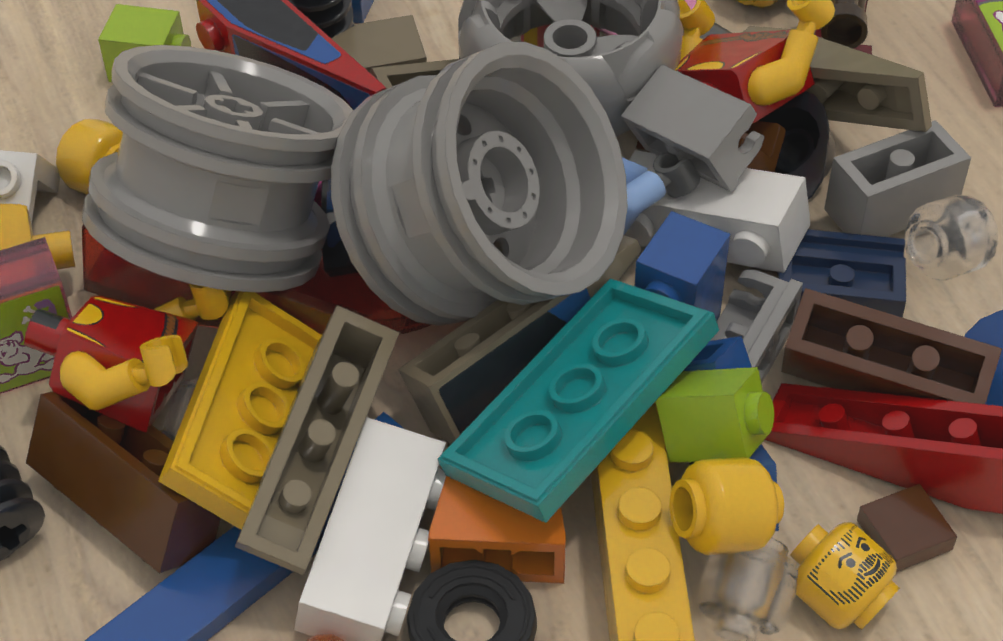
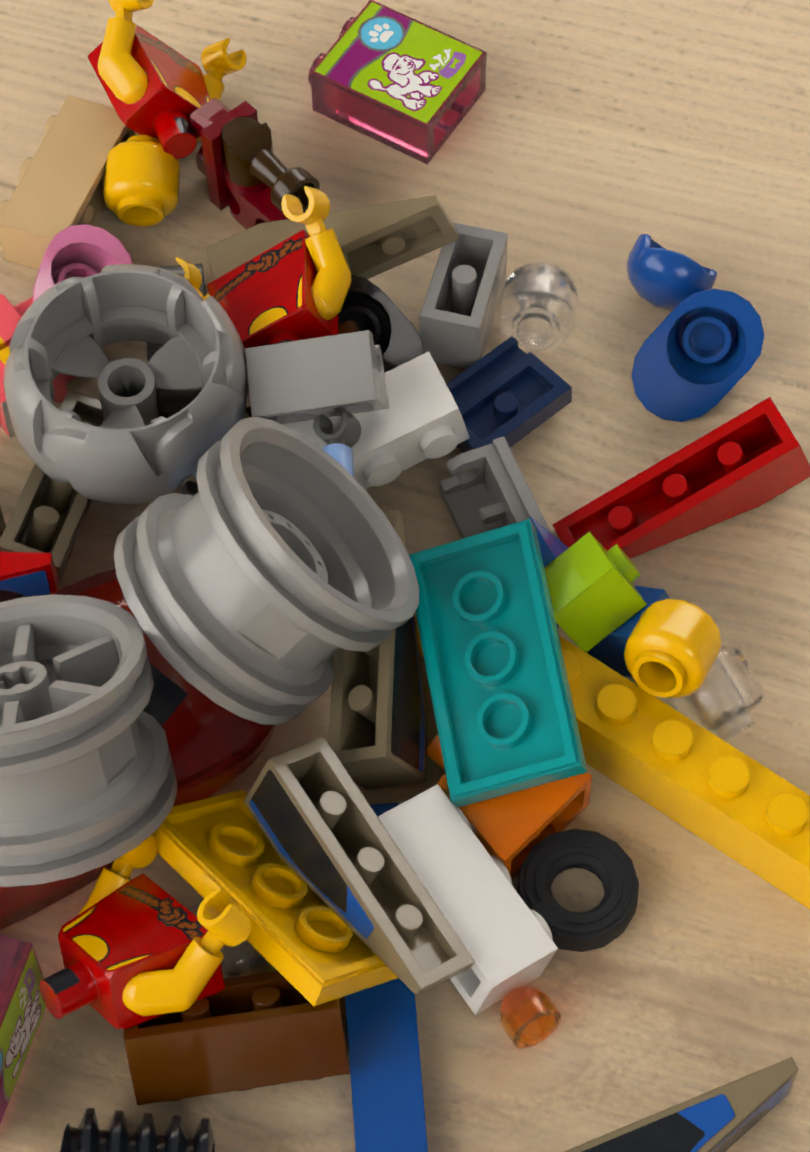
camera: 50 degrees left, 10 degrees up
(685, 263) = (432, 499): blue brick -> none
(844, 575) = (762, 623): yellow head -> none
(884, 353) = (616, 443): reddish brown brick -> none
(907, 526) = (745, 555): reddish brown tile -> none

